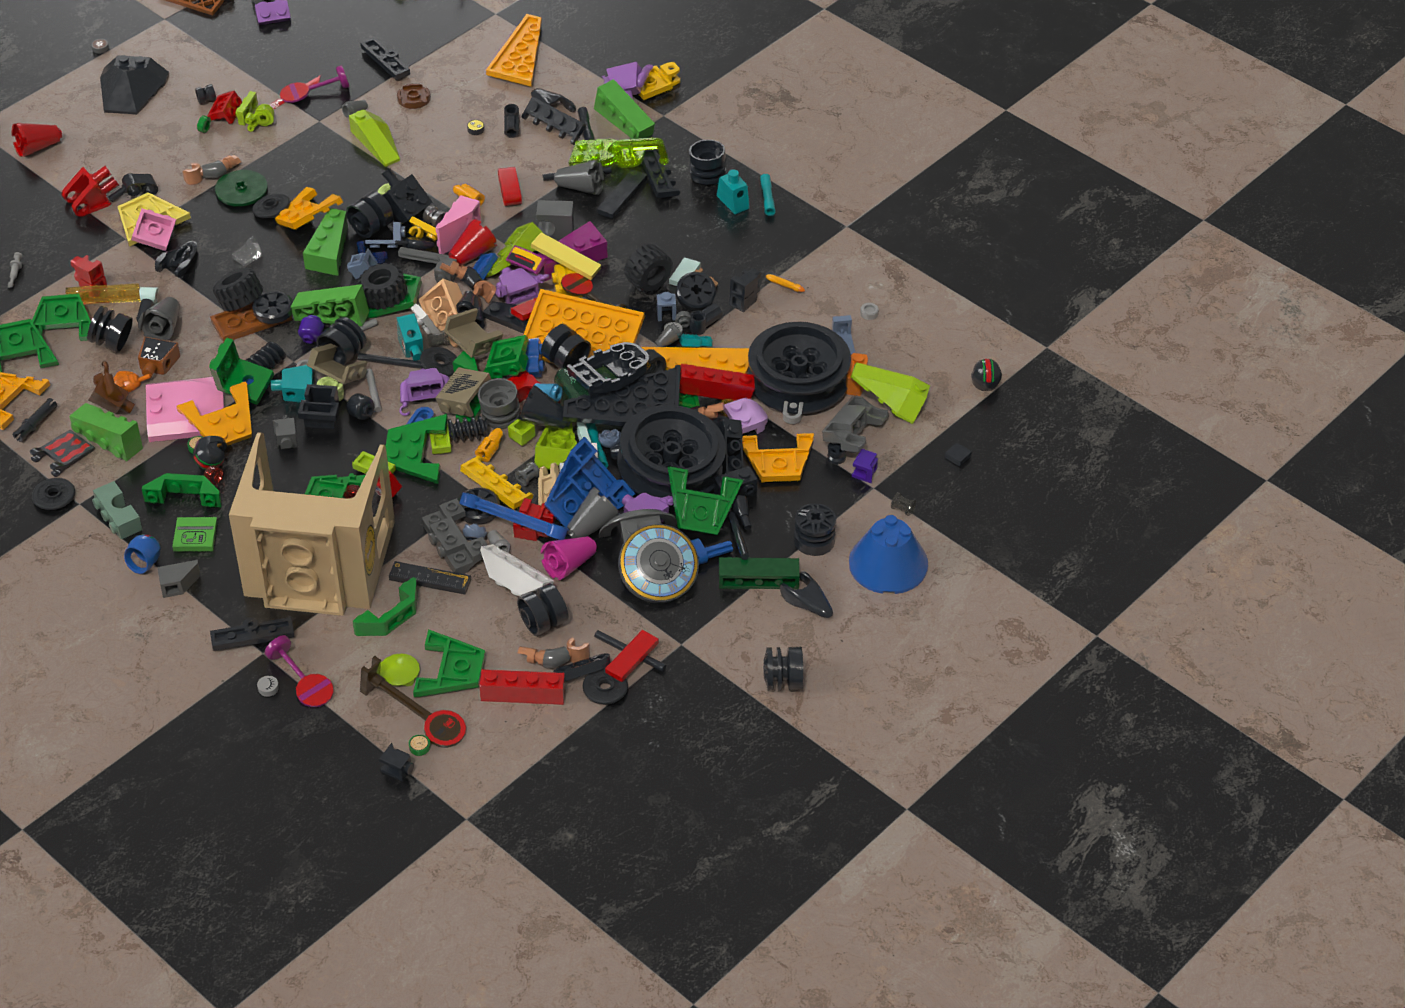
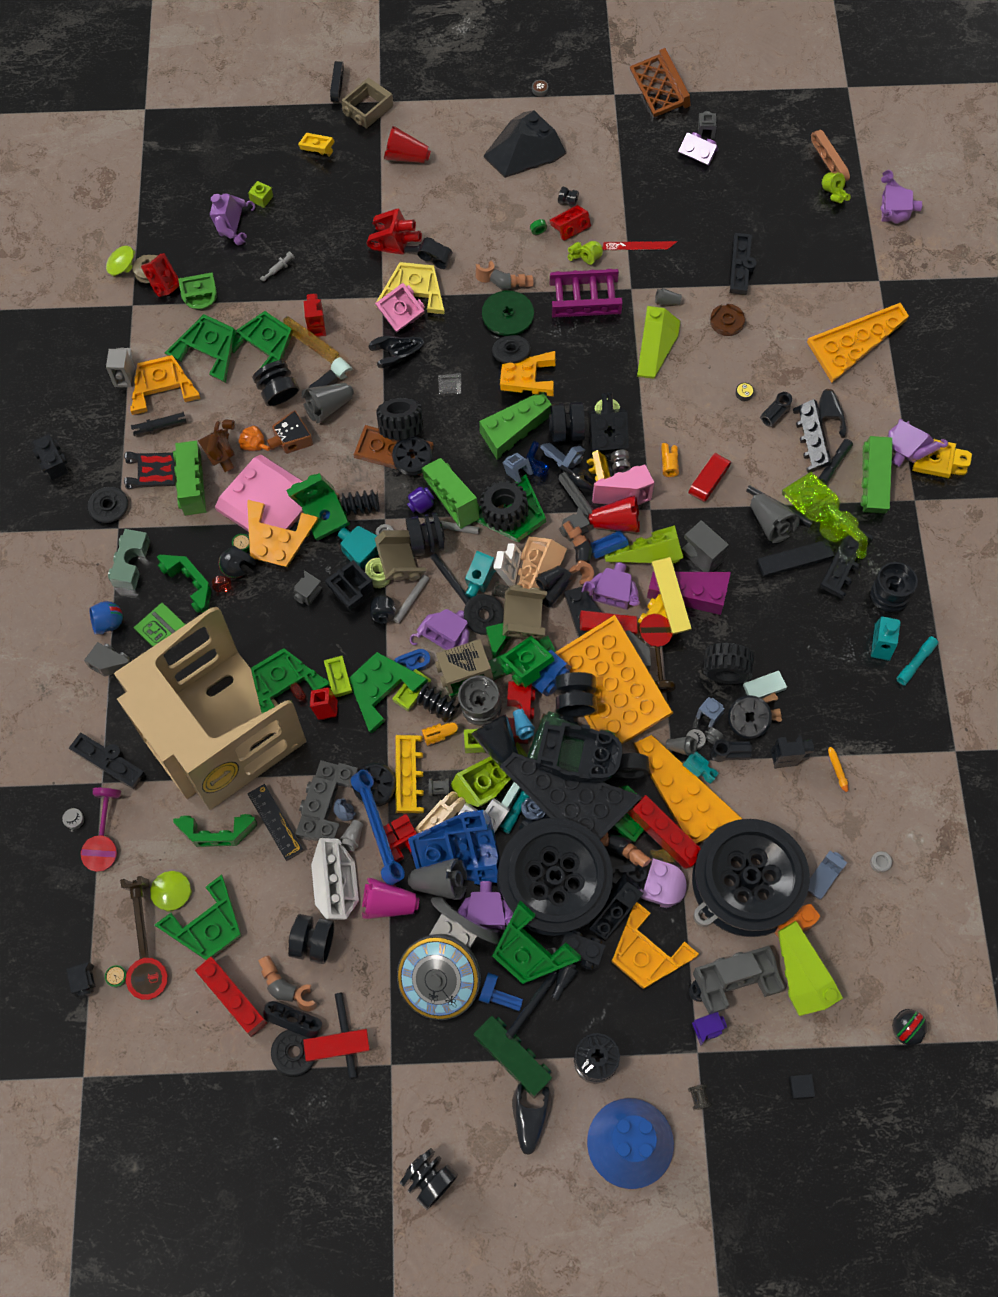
camera: 45 degrees right, 20 degrees up
(248, 105) = (586, 234): lime plate -> none
(295, 150) = (590, 306): none -> magenta fence
(298, 91) = (641, 245): piece -> none
(526, 259) = (639, 571): slope -> none

